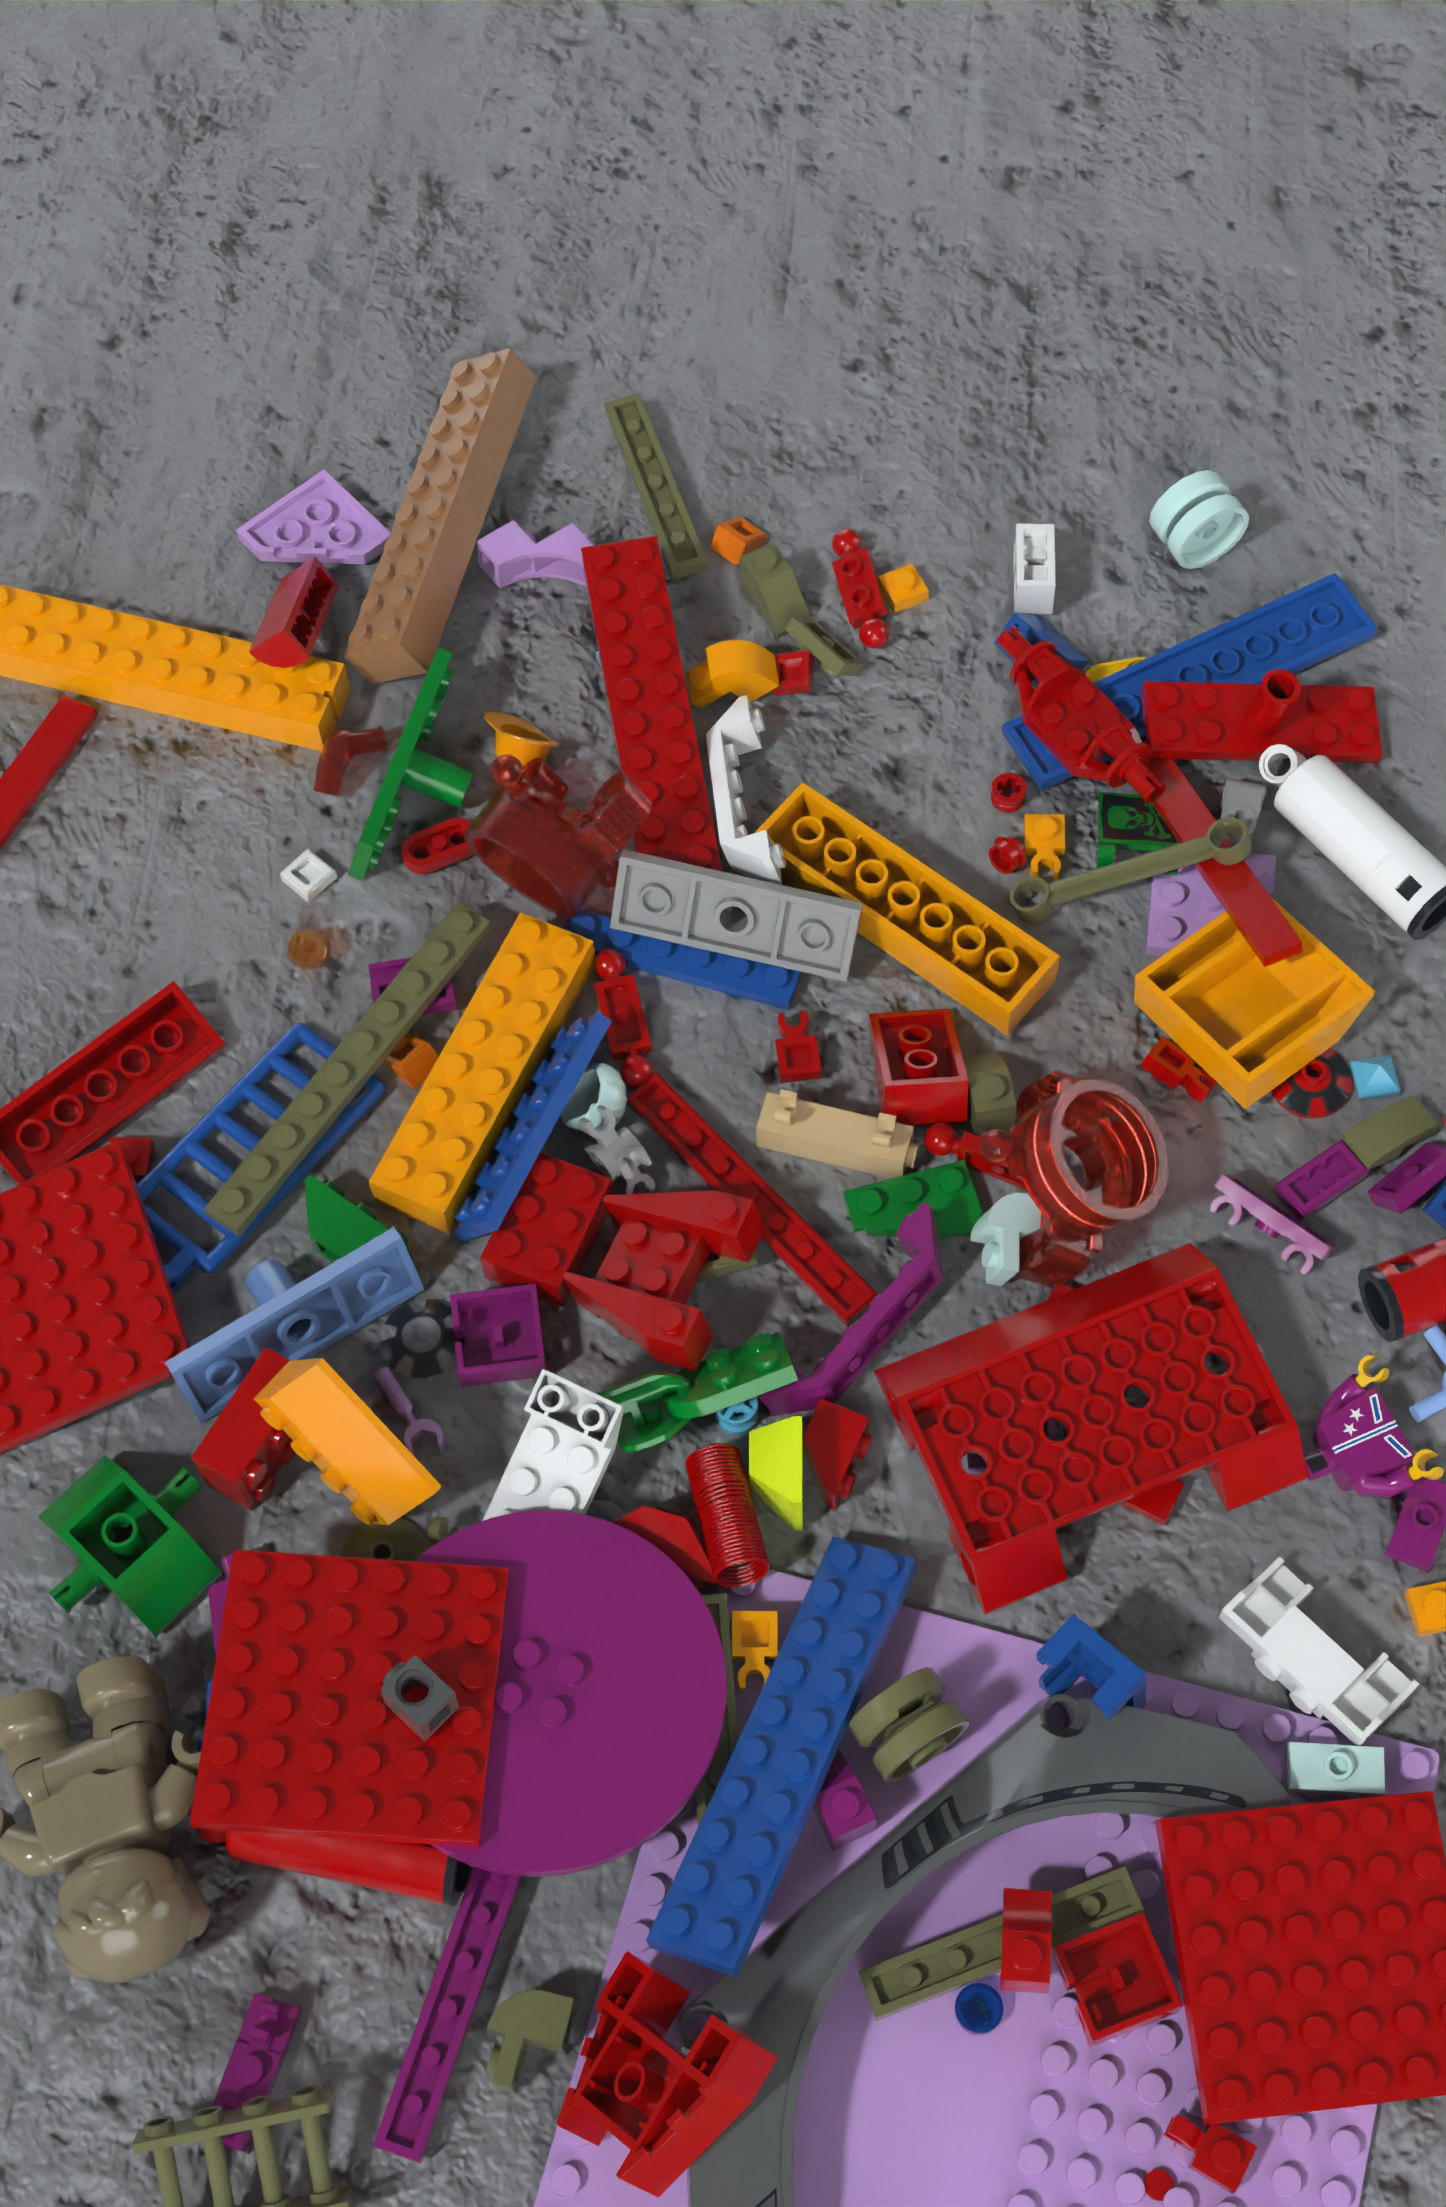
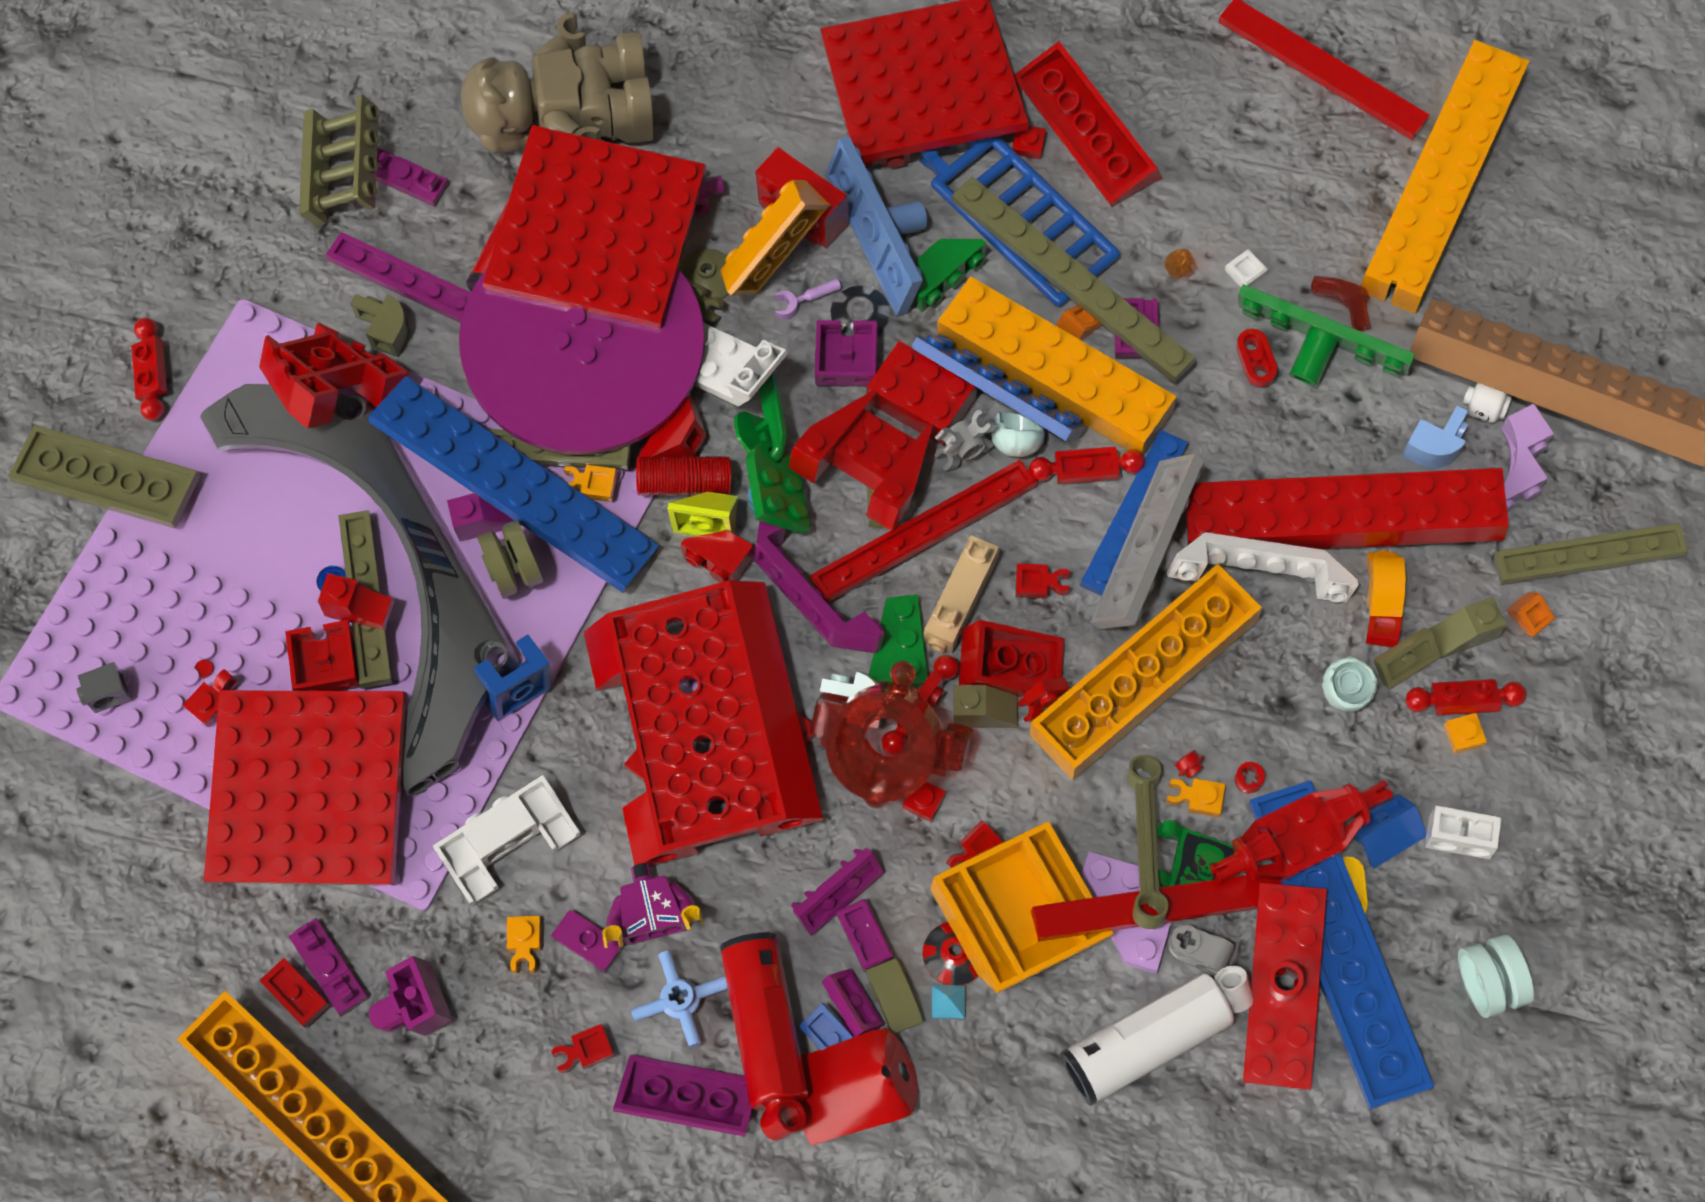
camera: 100 degrees right, 5 degrees up
(151, 1572) = (743, 121): green slope -> none
(295, 616) = (1470, 266): red brick -> none
(315, 522) = (1574, 296): lavender plate -> none
(428, 1714) = (570, 262): dark grey brick -> none
(474, 599) = (1486, 403): none -> white head
(519, 737) = (1345, 420): light orange piece -> none
(534, 639) = (1437, 447): none -> light blue brick
(545, 845) = (1227, 405): clear red piece -> none
(875, 694) = (1349, 684): none -> light aqua hair
(962, 1012) = (1042, 696): none -> red plate
(1335, 1769) = (424, 831): light aqua plate -> none

